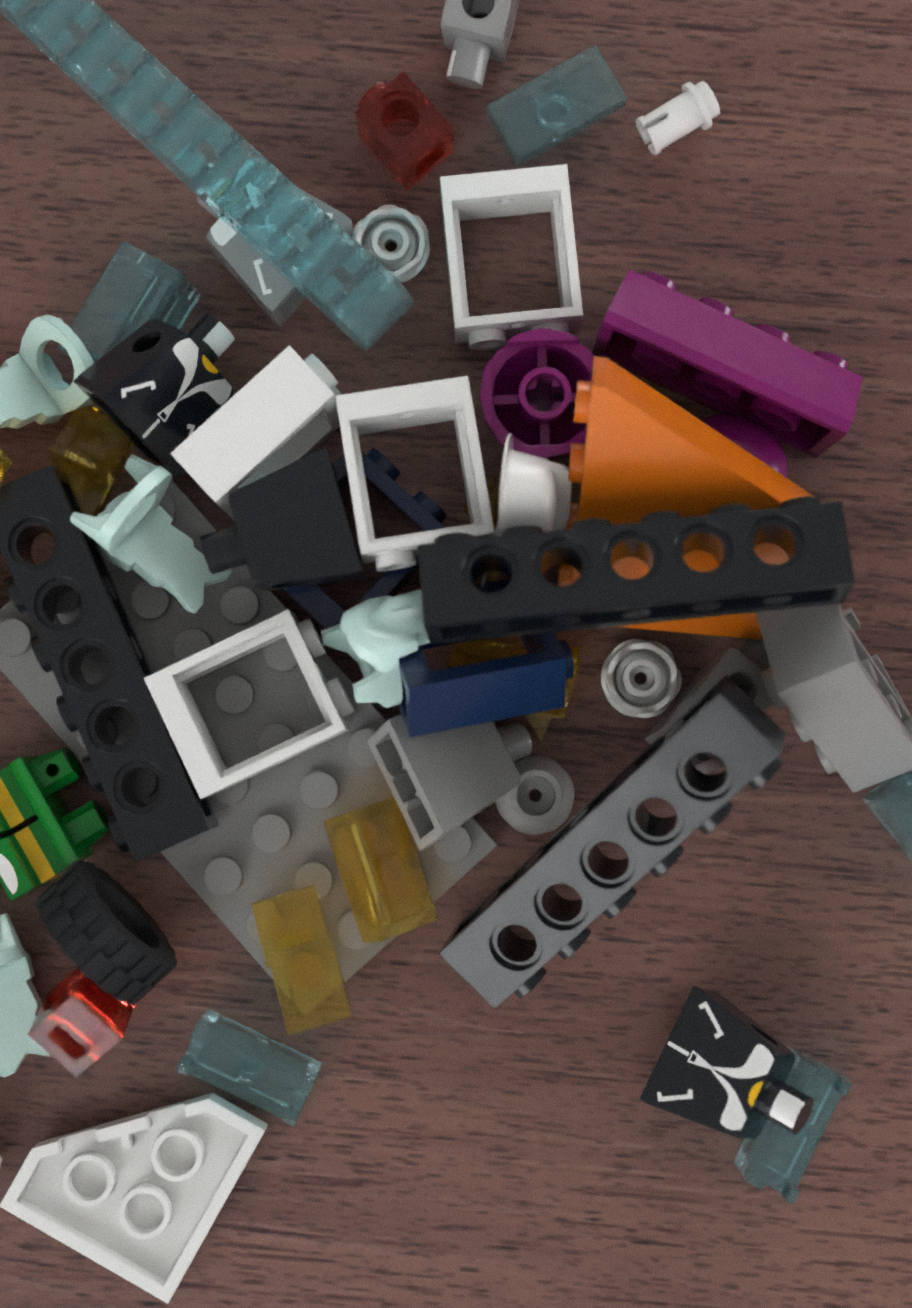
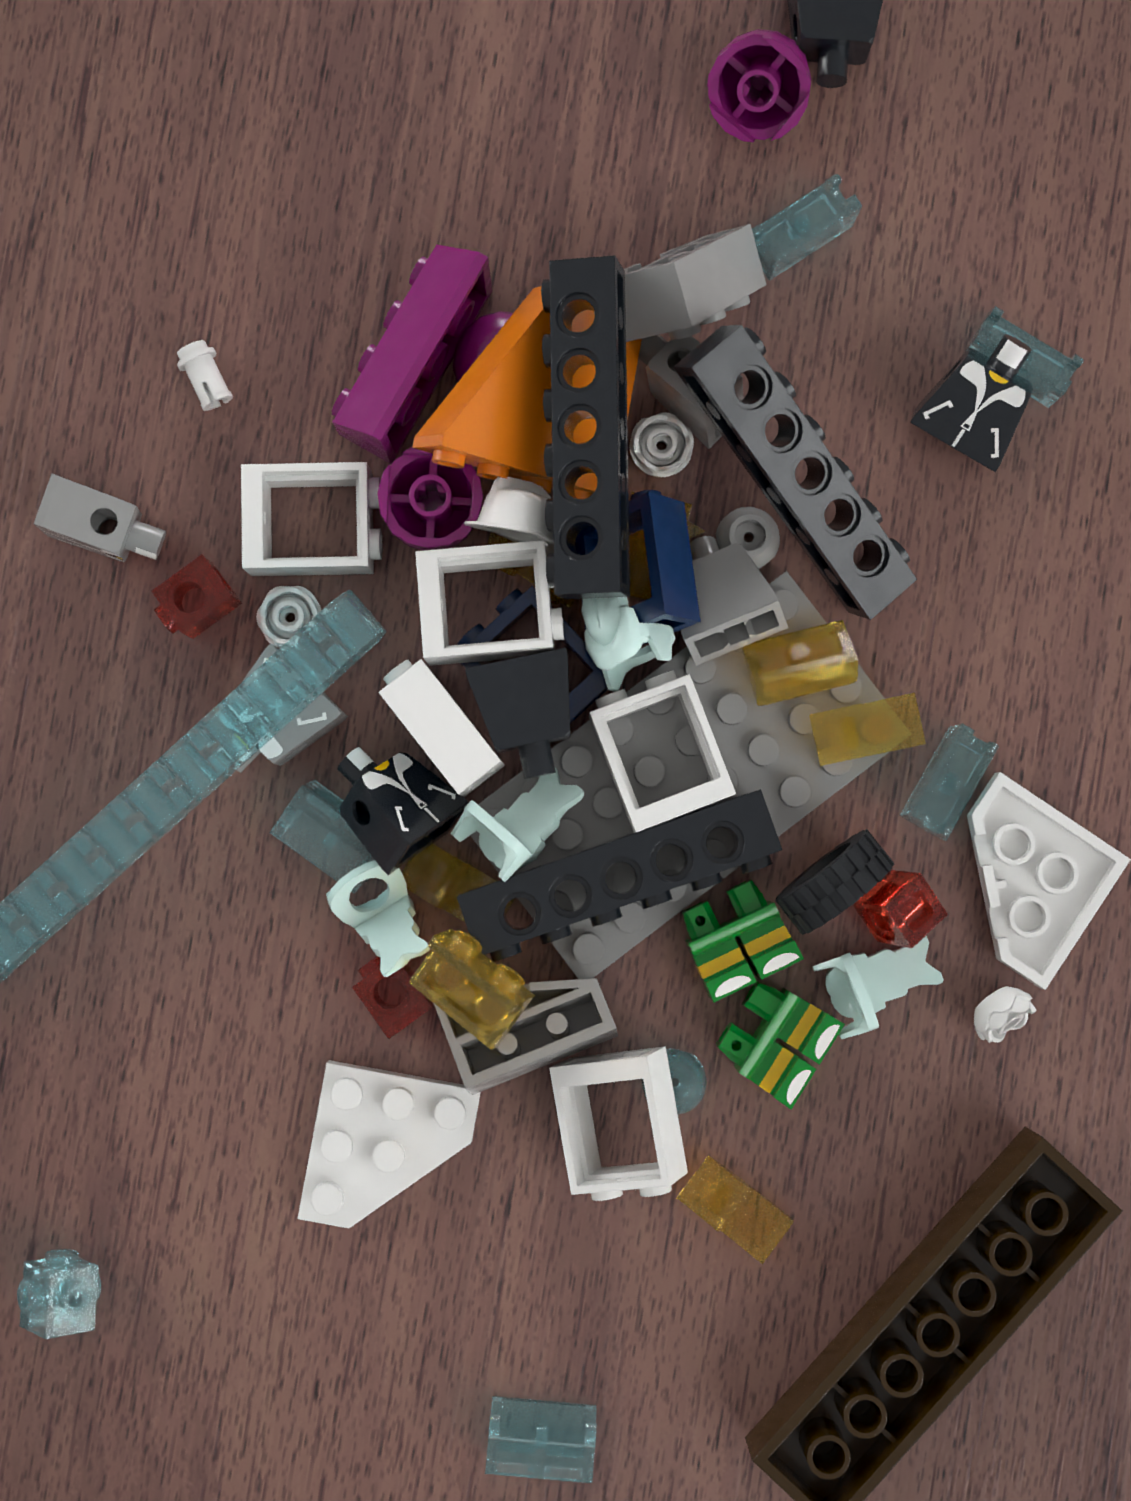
camera: 90 degrees left, 0 degrees up
(556, 105) = (185, 473): clear light blue plate -> none

